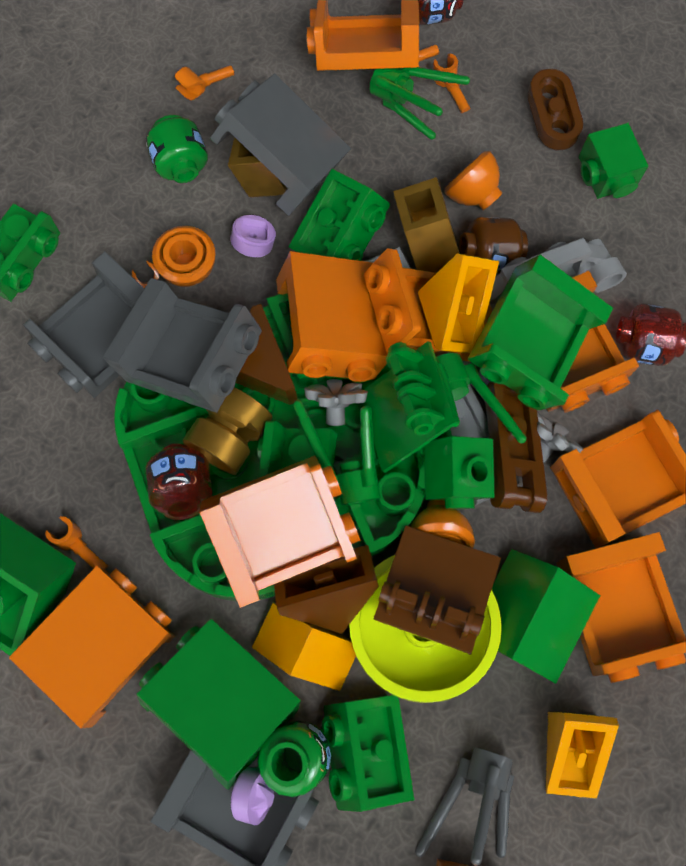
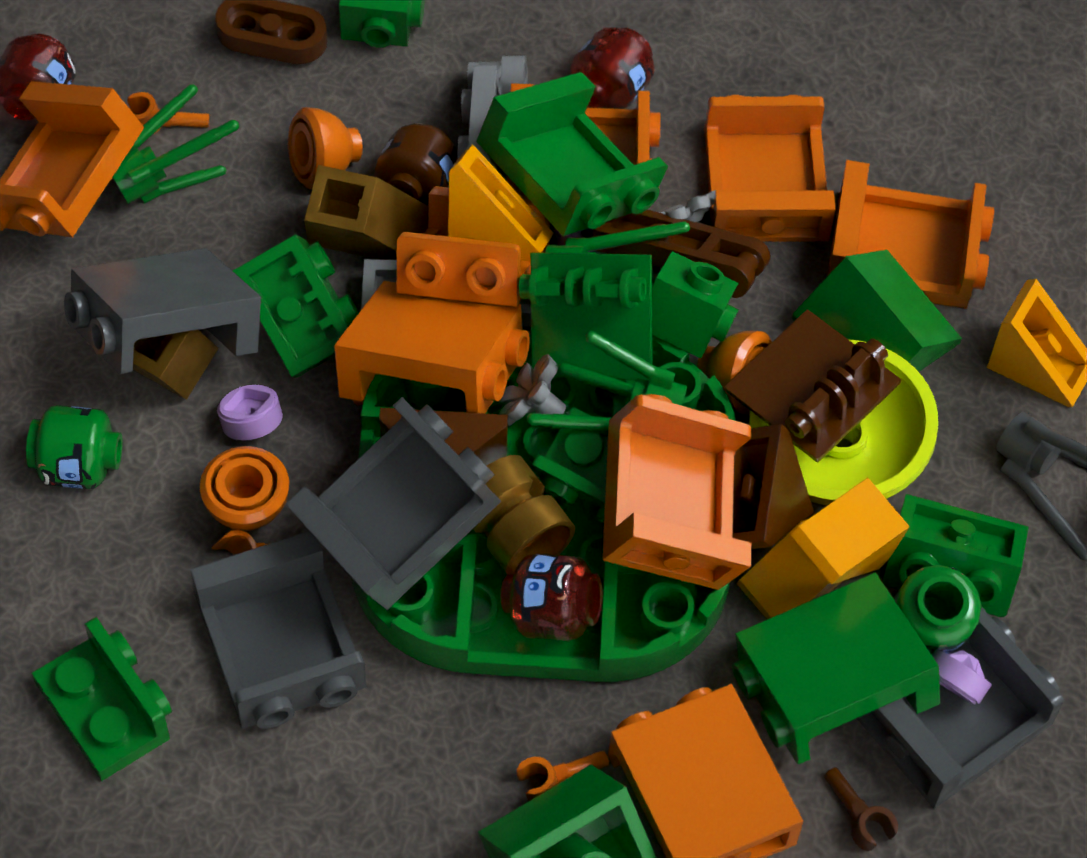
camera: 65 degrees left, 15 degrees down
(128, 767) = (861, 812): none -> reddish brown hand
(308, 668) = (852, 533): none -> light orange slope

